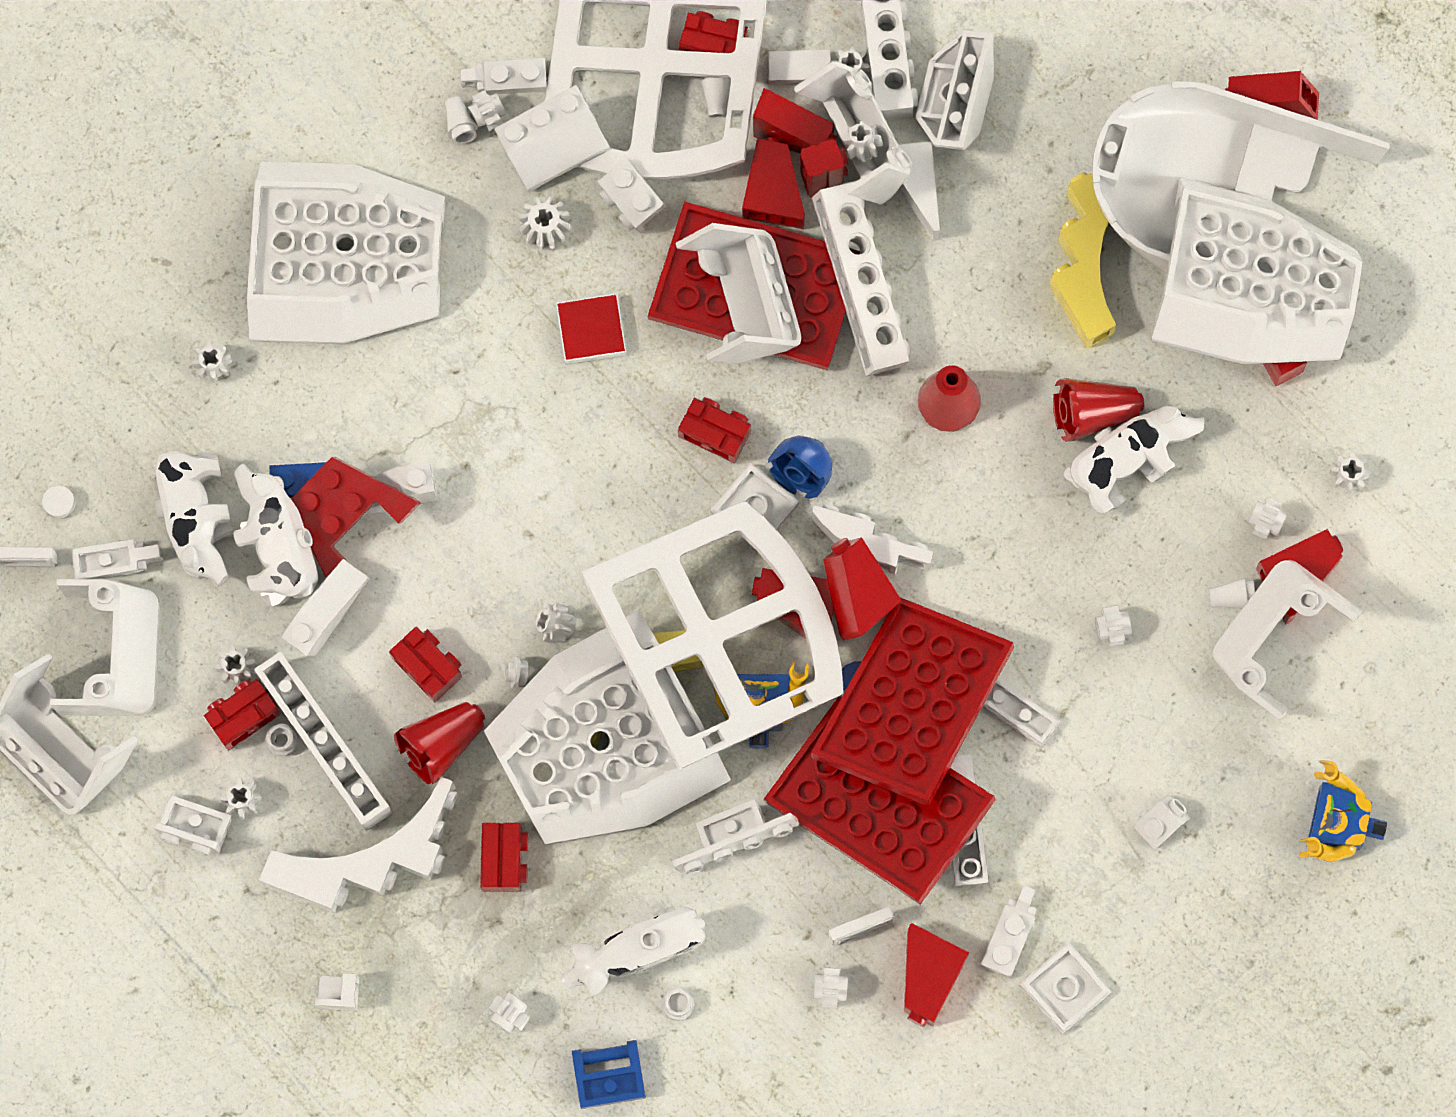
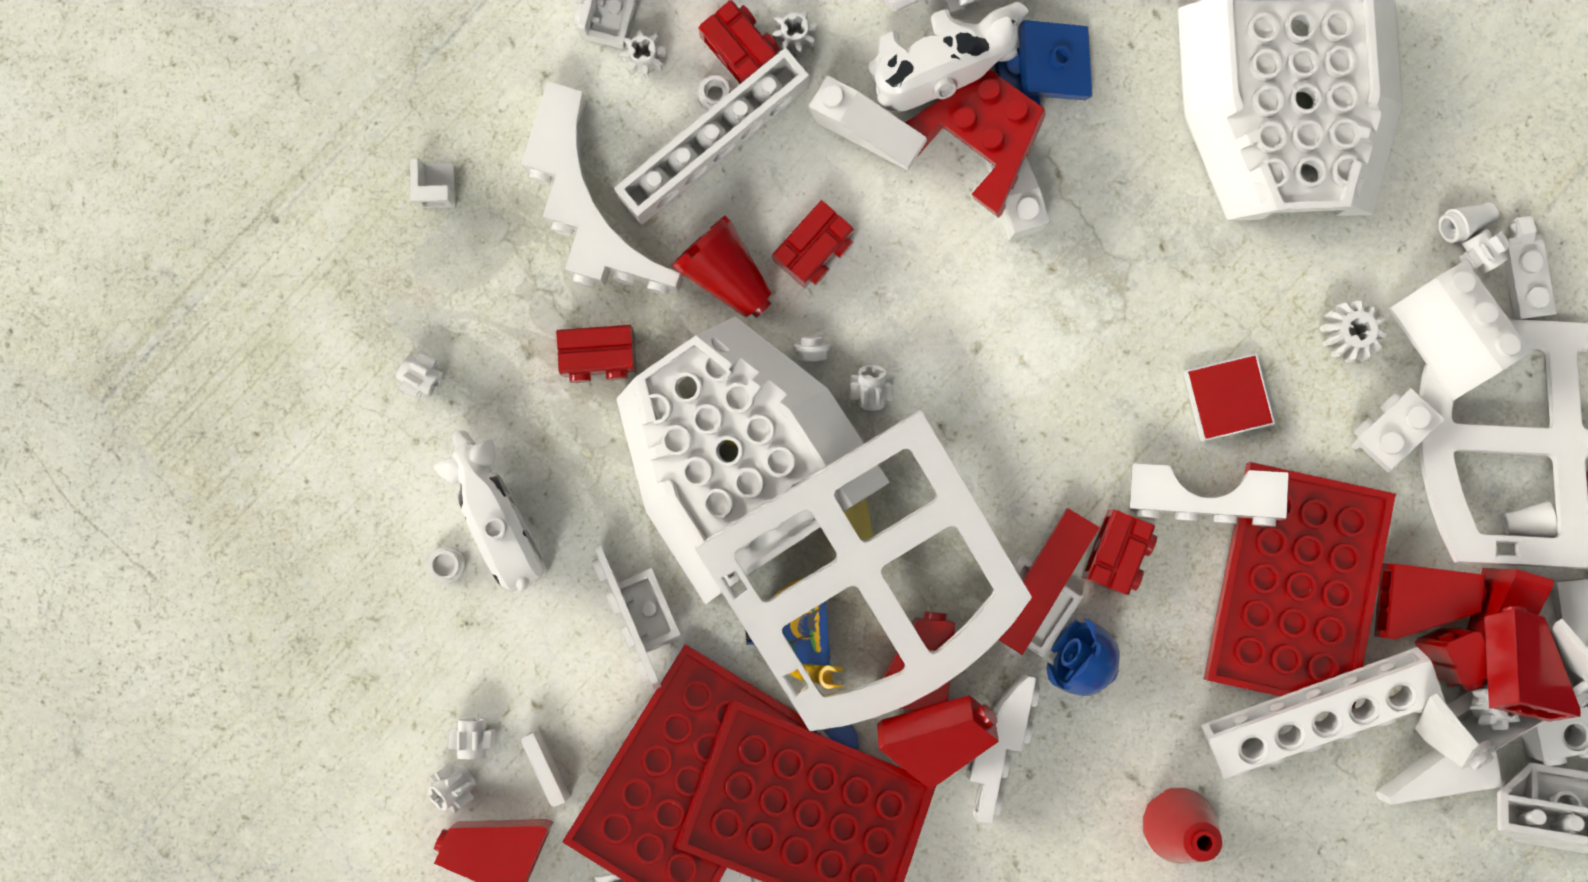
camera: 80 degrees right, 10 degrees up
(285, 446) = (1055, 60): none -> blue plate
(608, 1085) = (348, 496): blue plate -> none
(665, 393) = (1259, 496): none -> white arch
(728, 487) = (1049, 575): none -> red tile
(753, 290) = (1297, 584): white windscreen -> none
(831, 117) = (1526, 667): none -> red slope
(872, 1007) = (451, 788): none -> white gear

